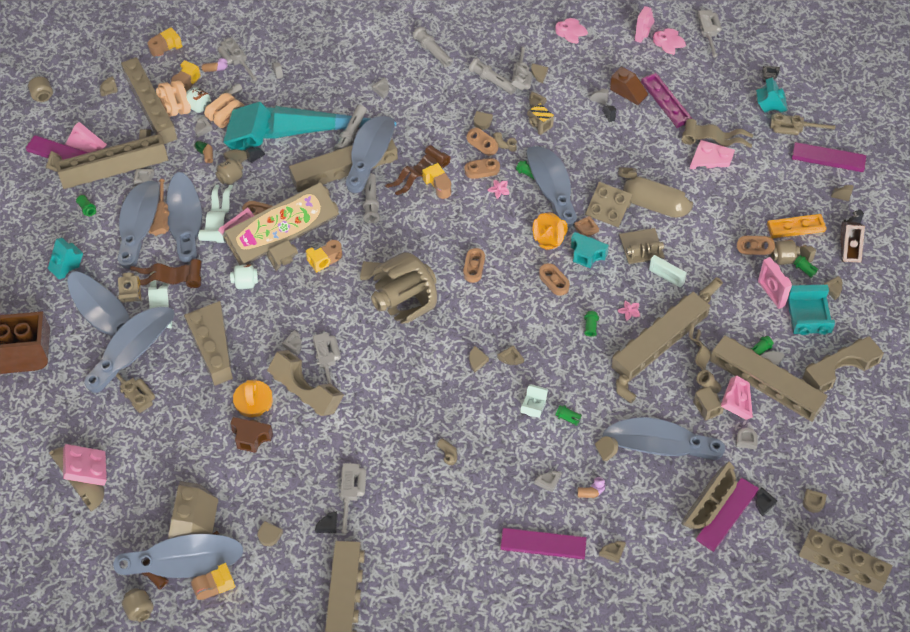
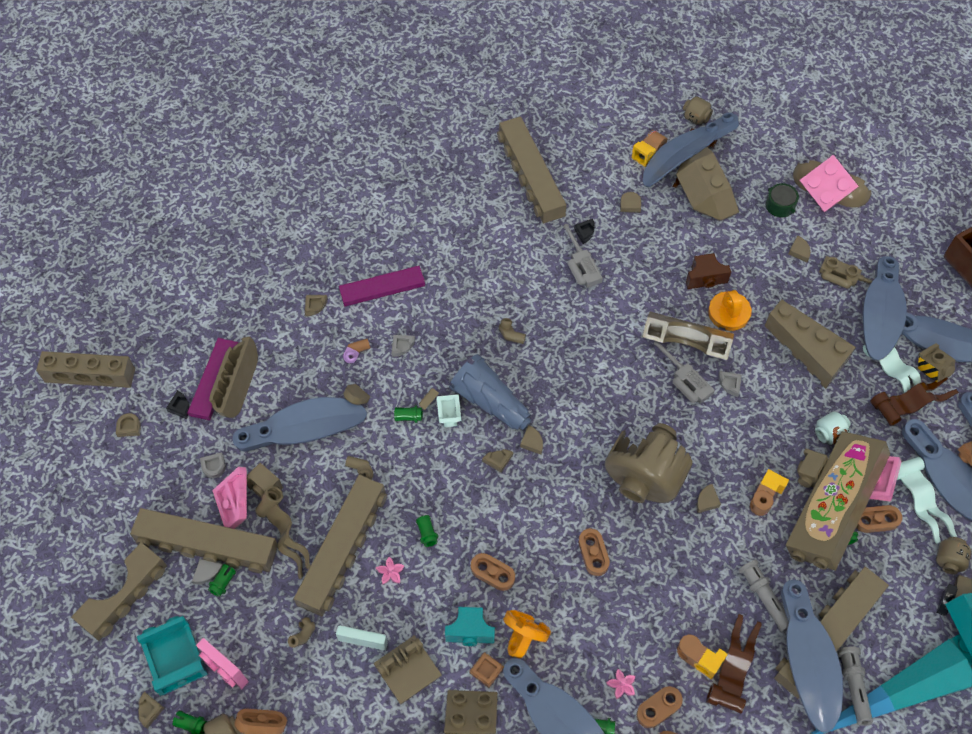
camera: 155 degrees right, 5 degrees up
(133, 475) = (782, 200): none -> piece
(153, 427) = (800, 249): none -> dark tan tile
(497, 403) = (484, 388): none -> sand blue cone
(544, 418) = (429, 397): none -> dark tan tile

